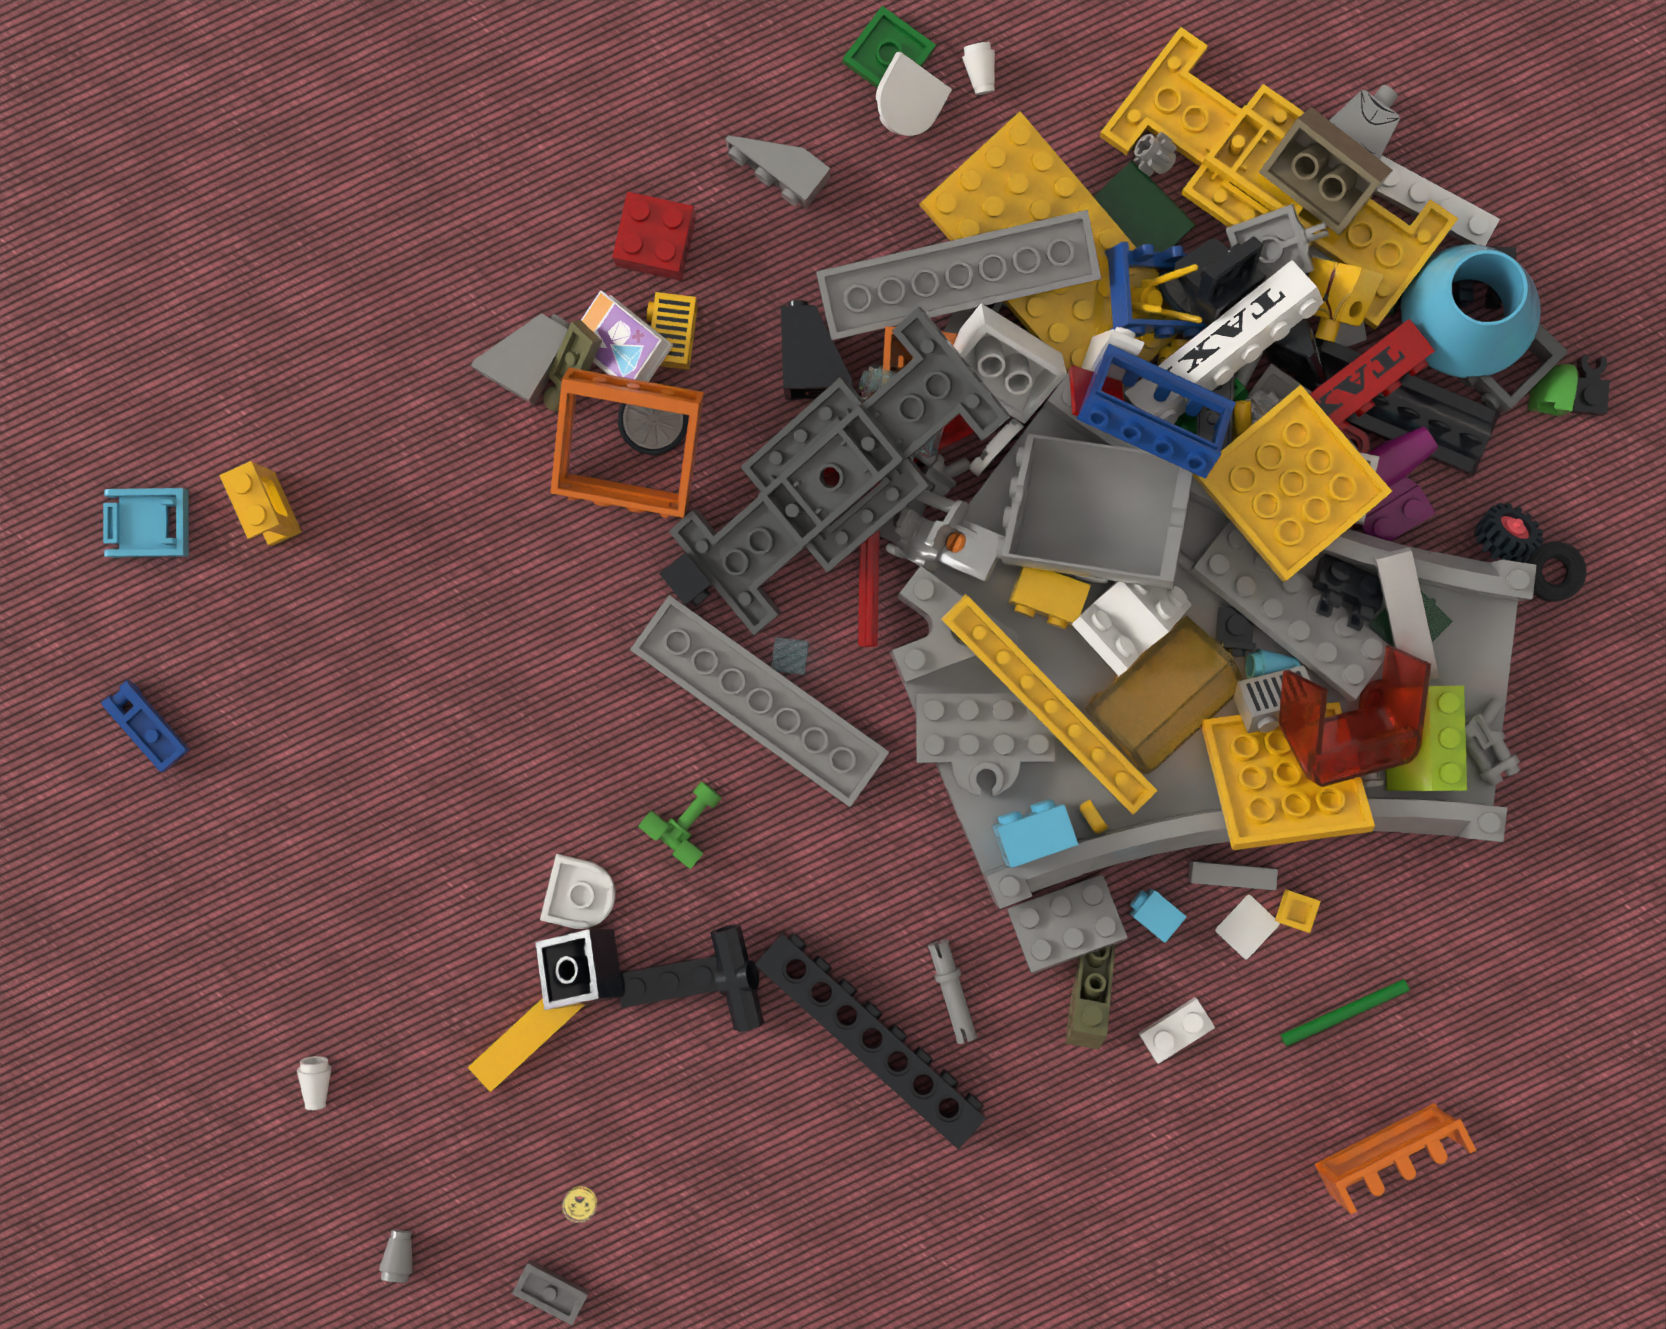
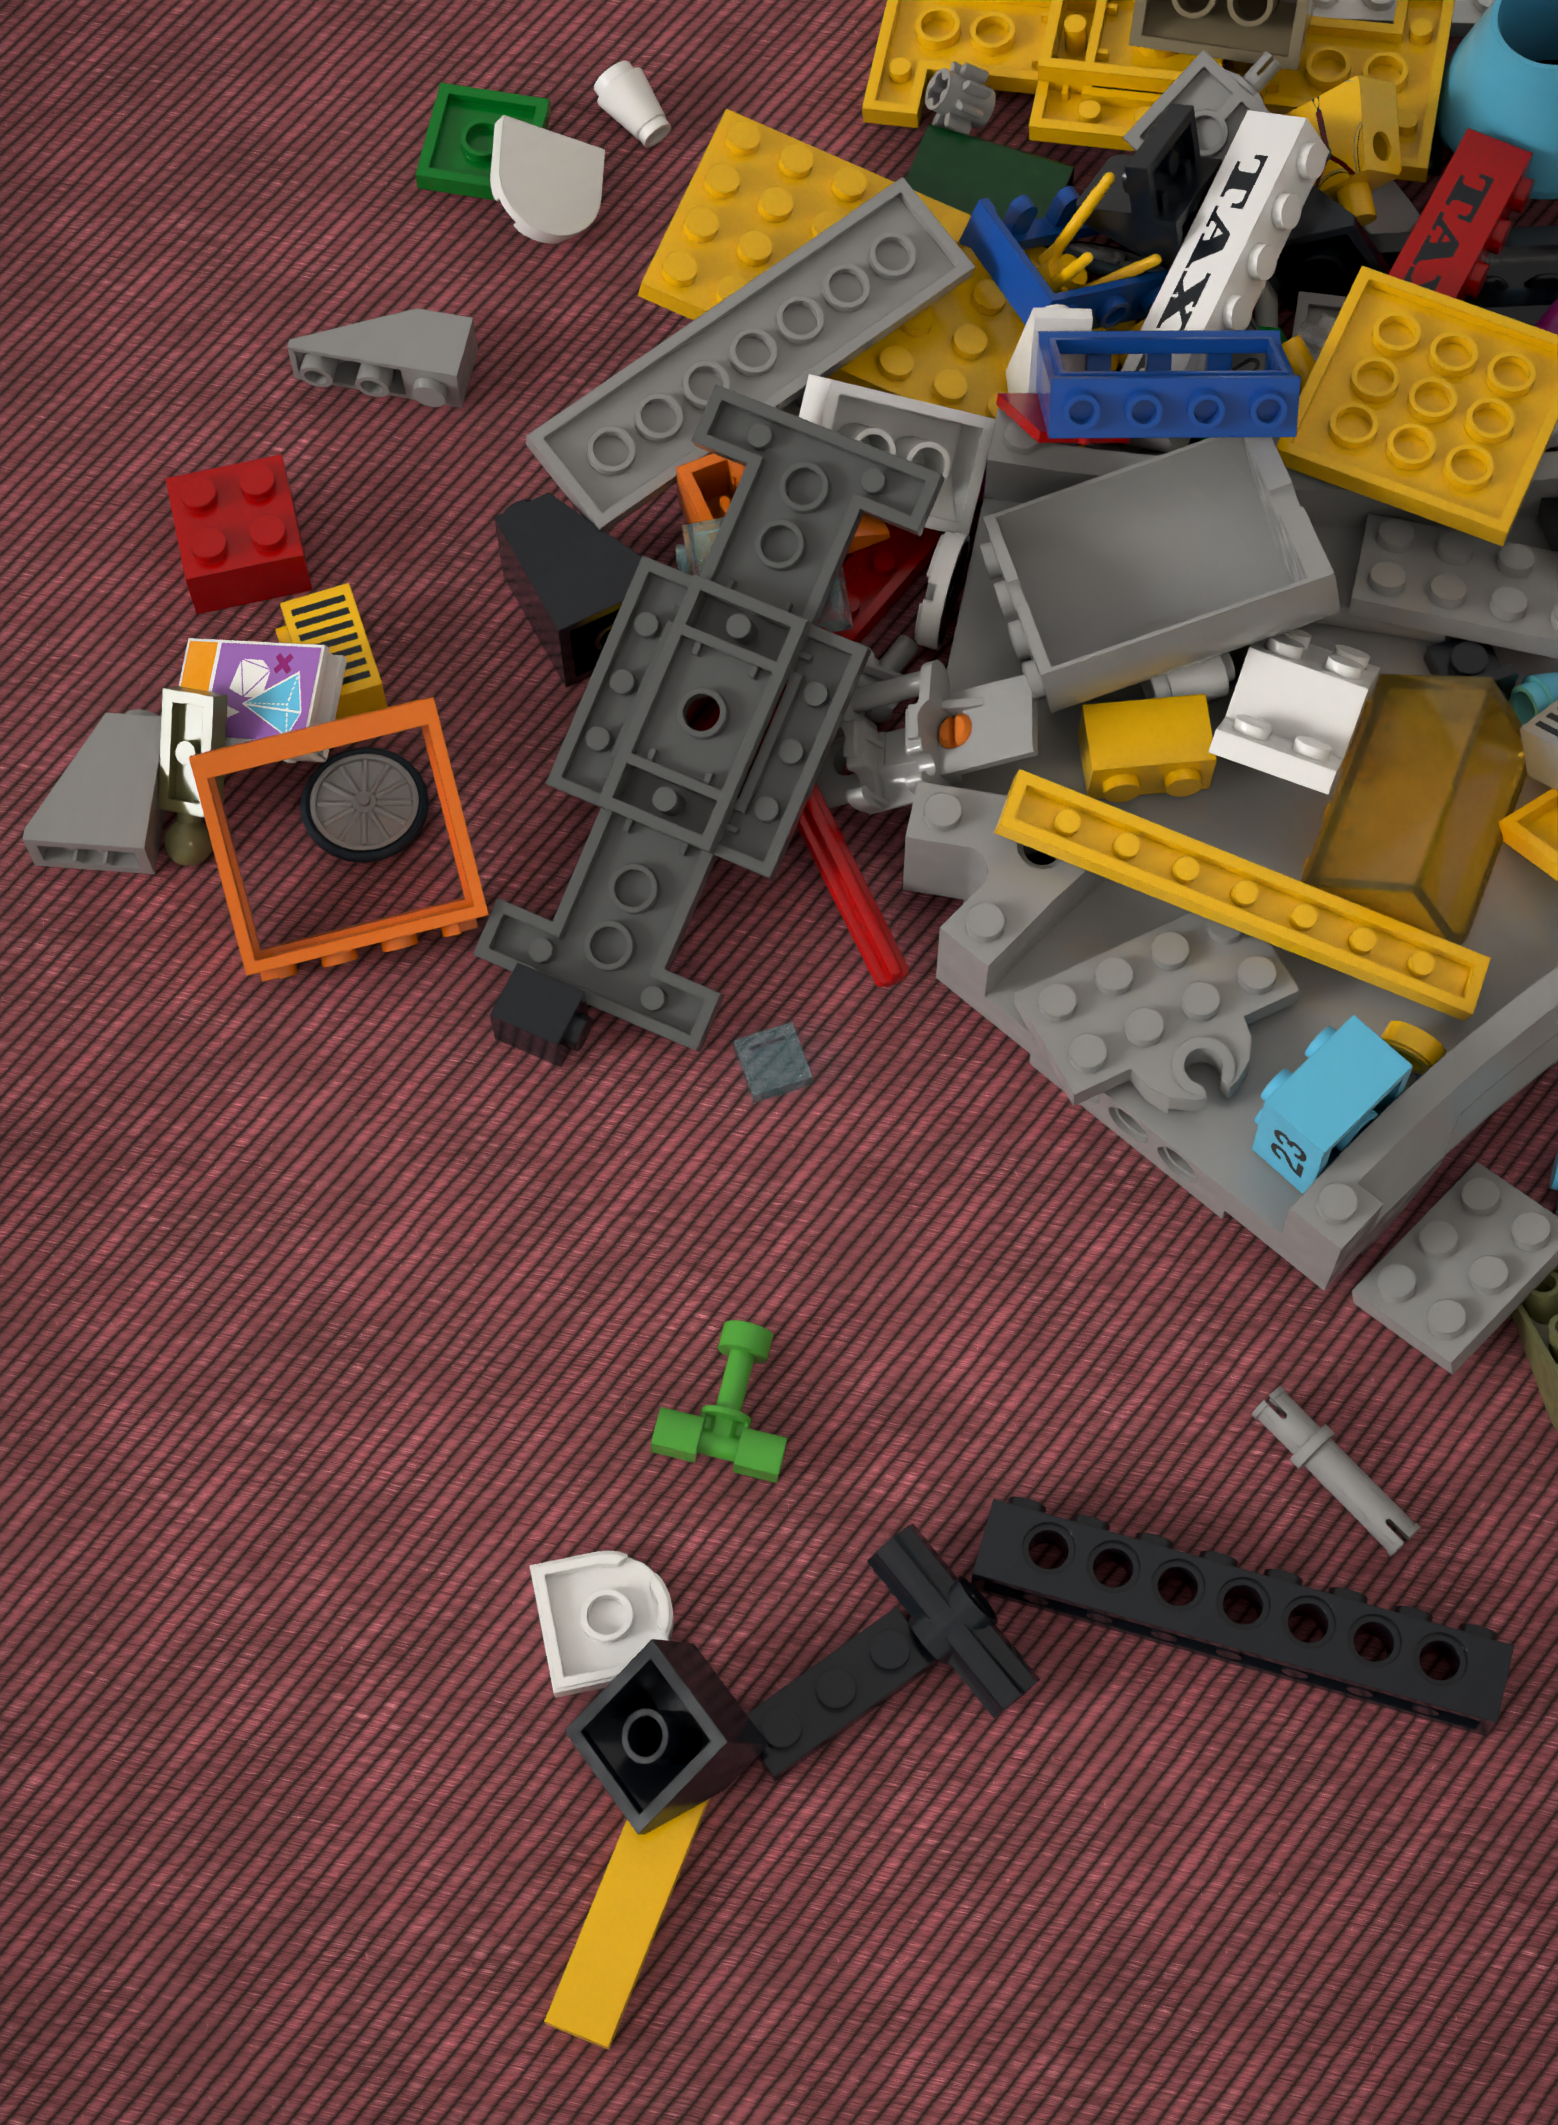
camera: 25 degrees left, 20 degrees down
(759, 701) = (758, 1150): light grey plate -> none

